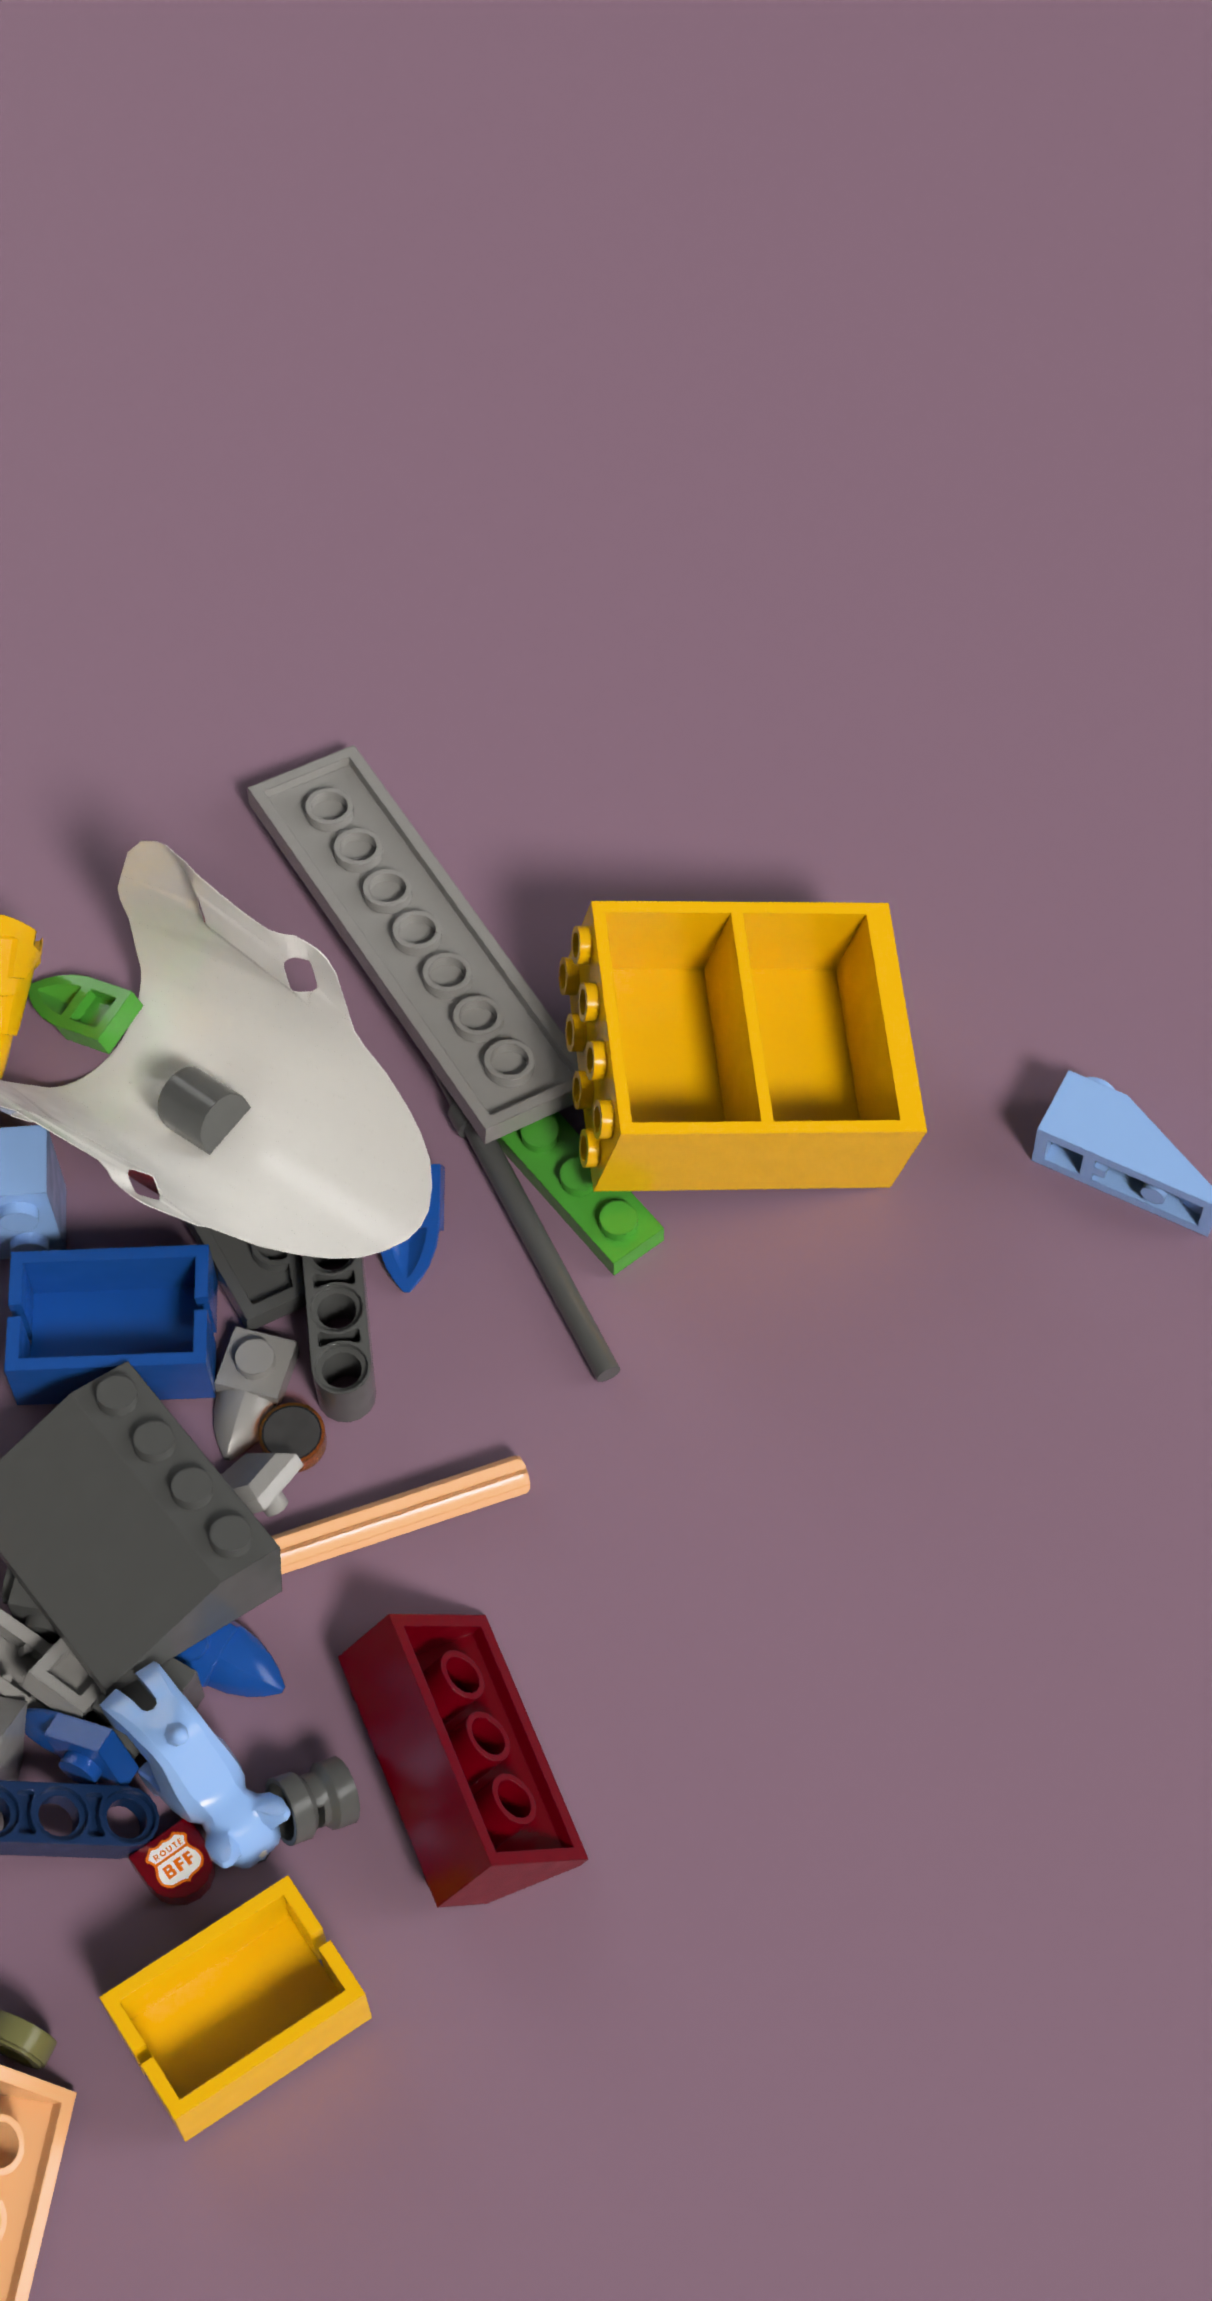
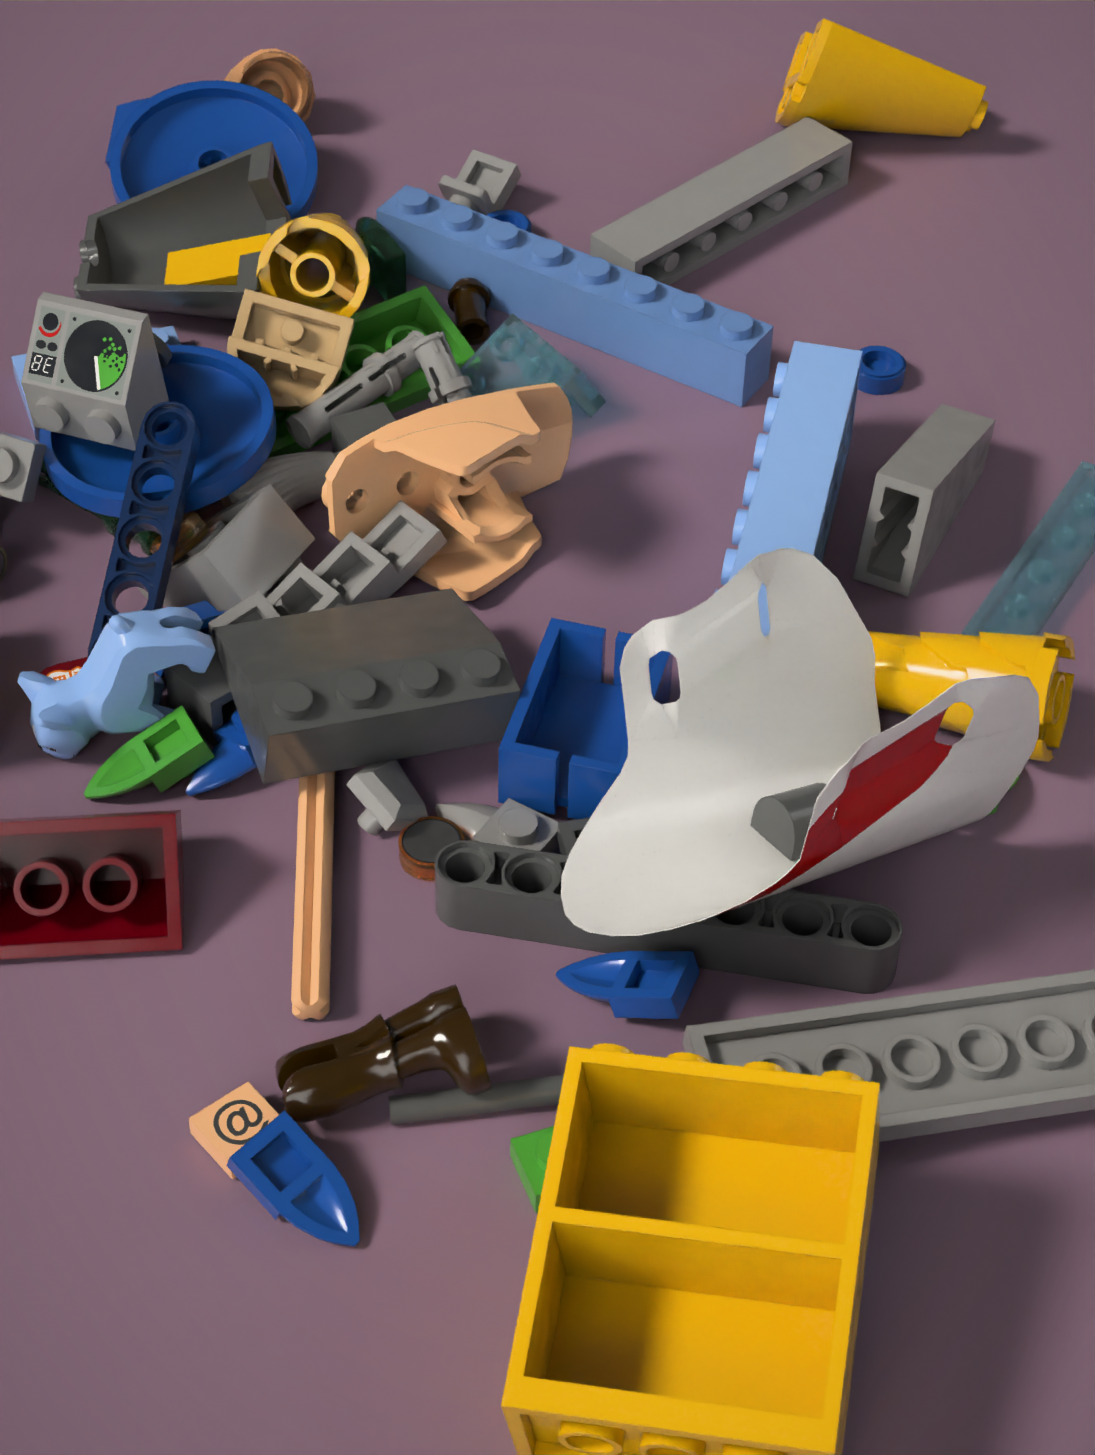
camera: 105 degrees right, 15 degrees down
(258, 1725) = (158, 755): none -> bright green plate
(316, 1799) = (60, 769): dark grey wheel -> none
(583, 1389) = (379, 1056): none -> dark brown piece
(674, 1483) = (231, 1123): none -> light nougat tile
(717, 1412) = (297, 1182): none -> blue plate

